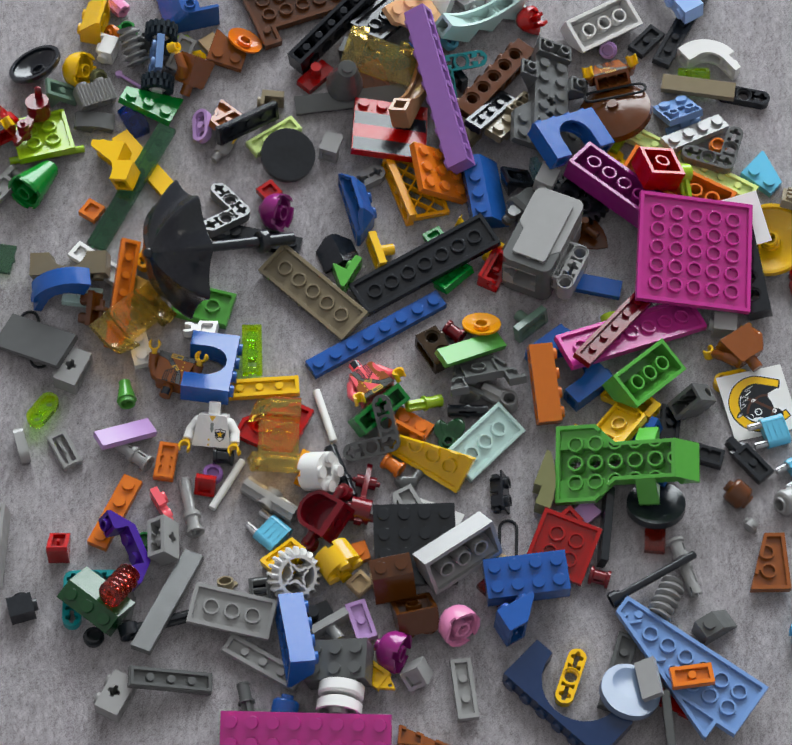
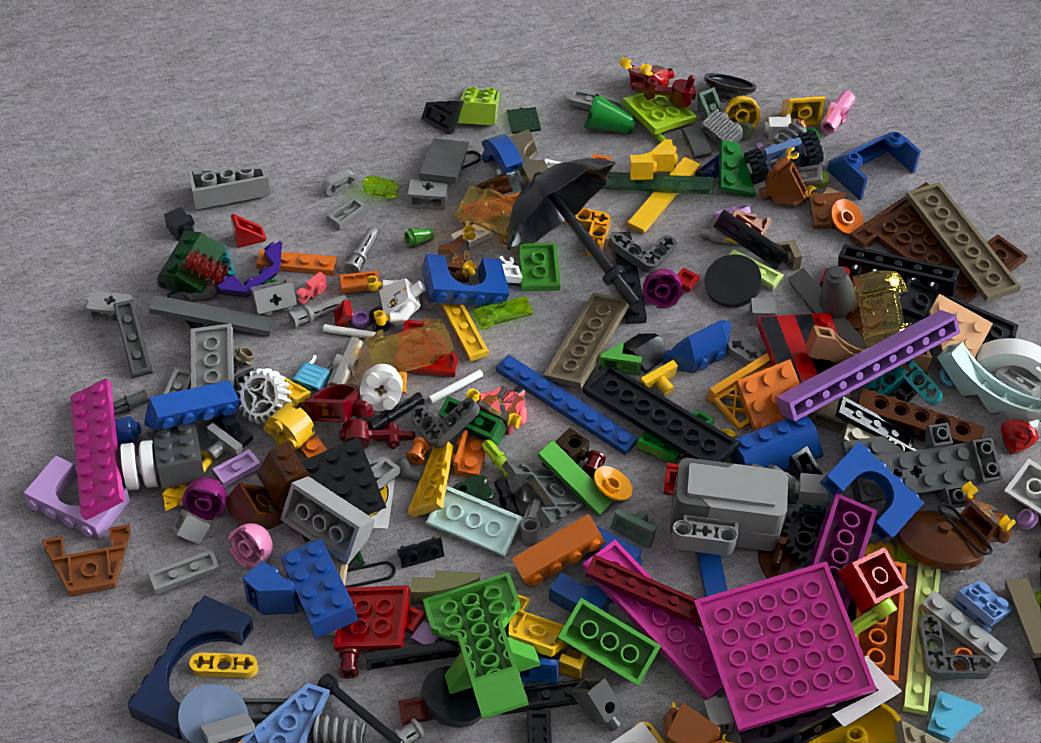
camera: 75 degrees right, 10 degrees down
(125, 434) = (373, 243): lavender tile -> none

